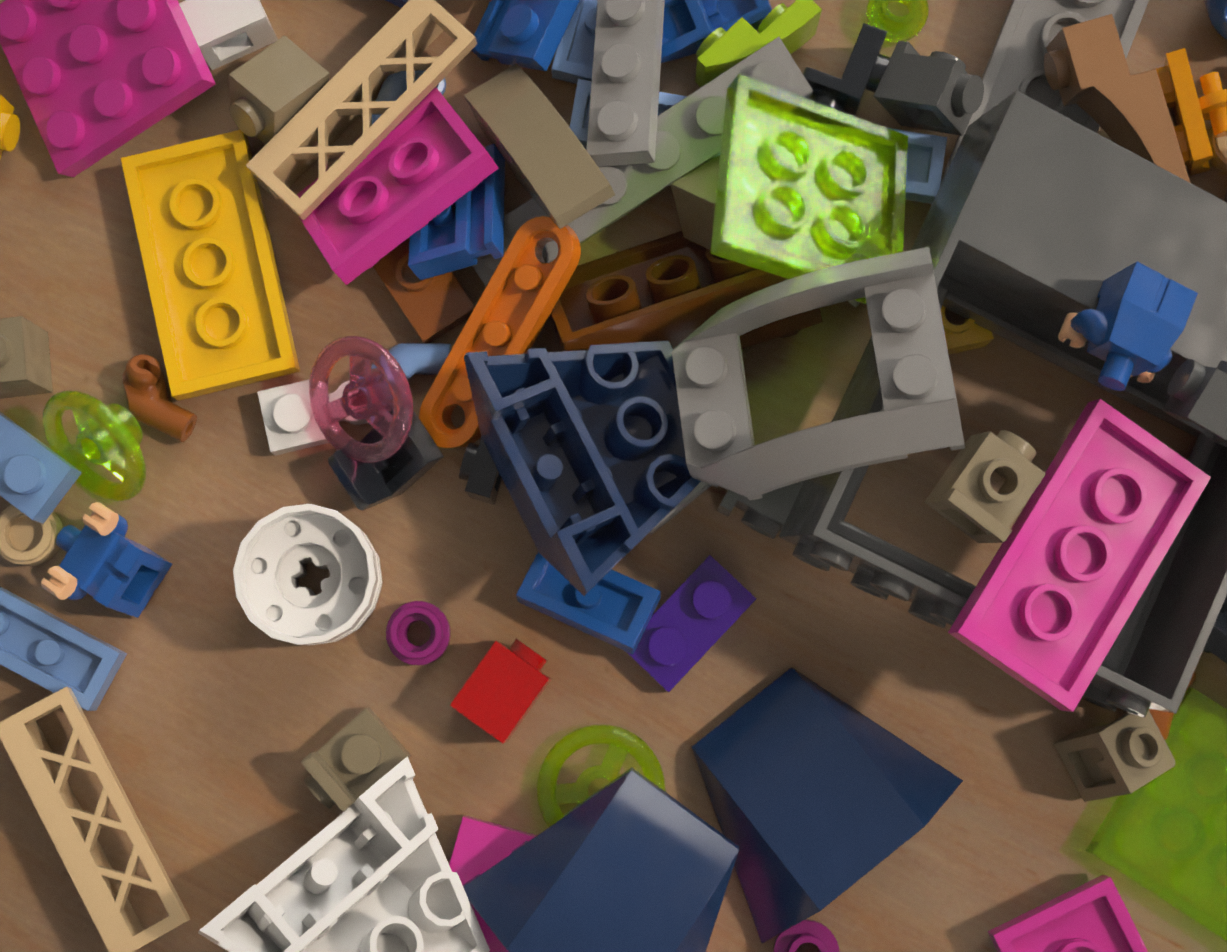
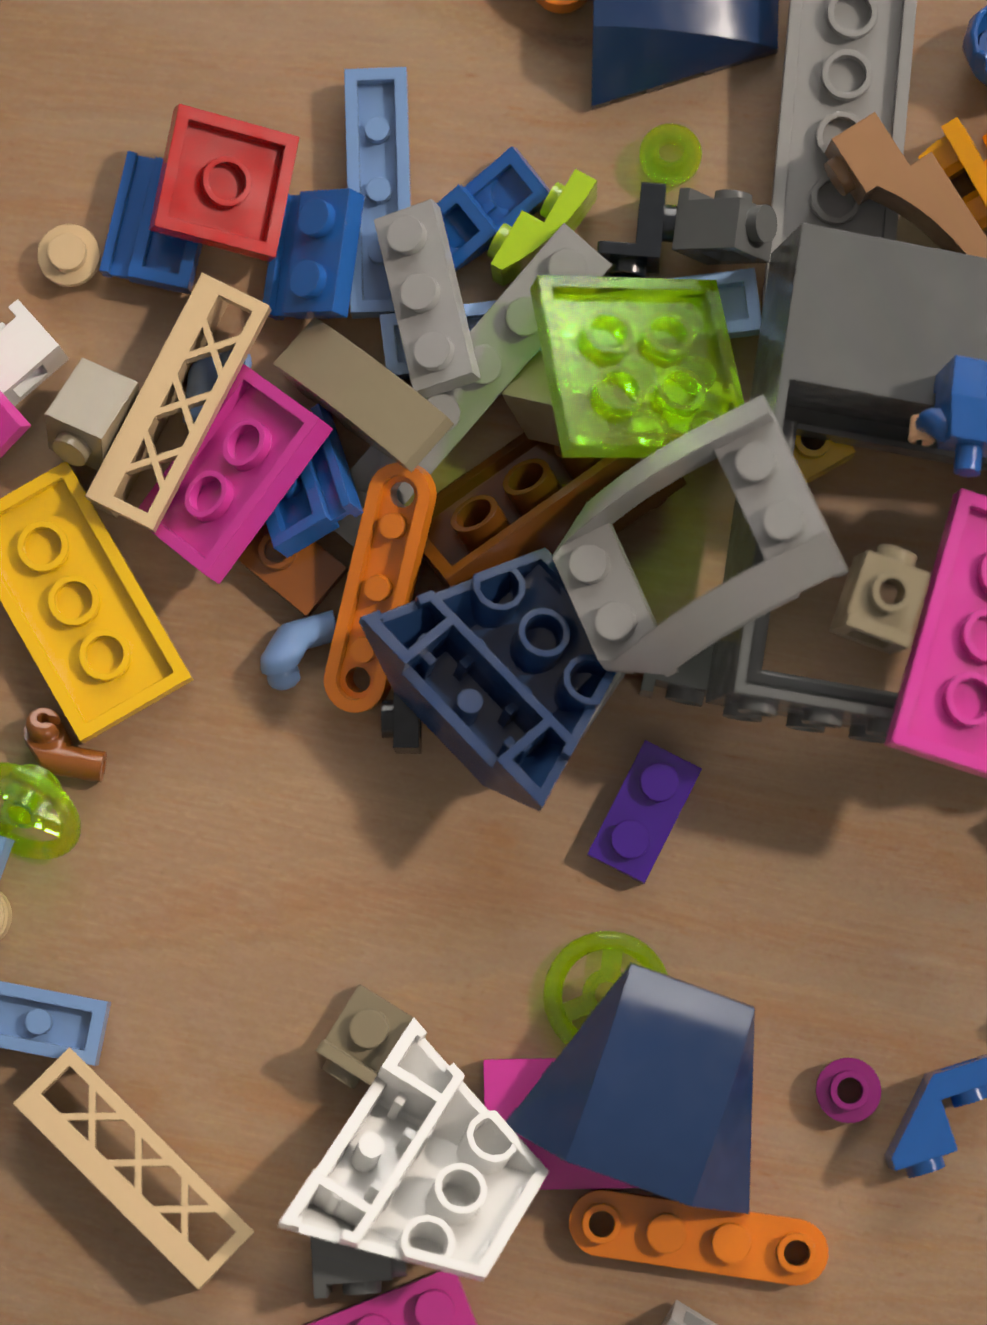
camera: 10 degrees left, 0 degrees up
(105, 564) = (66, 920): blue piece -> none
(276, 557) = (276, 834): white wheel -> none
(290, 418) = (210, 721): white plate -> none
(368, 396) = (275, 683): clear pink piece -> none
(383, 480) = (306, 739): black bracket -> none
(398, 629) = (386, 877): magenta plate -> none
(502, 689) = (486, 925): red brick -> none
(611, 611) = (568, 821): blue plate -> none
(812, 797) = (808, 940): dark blue wedge -> none

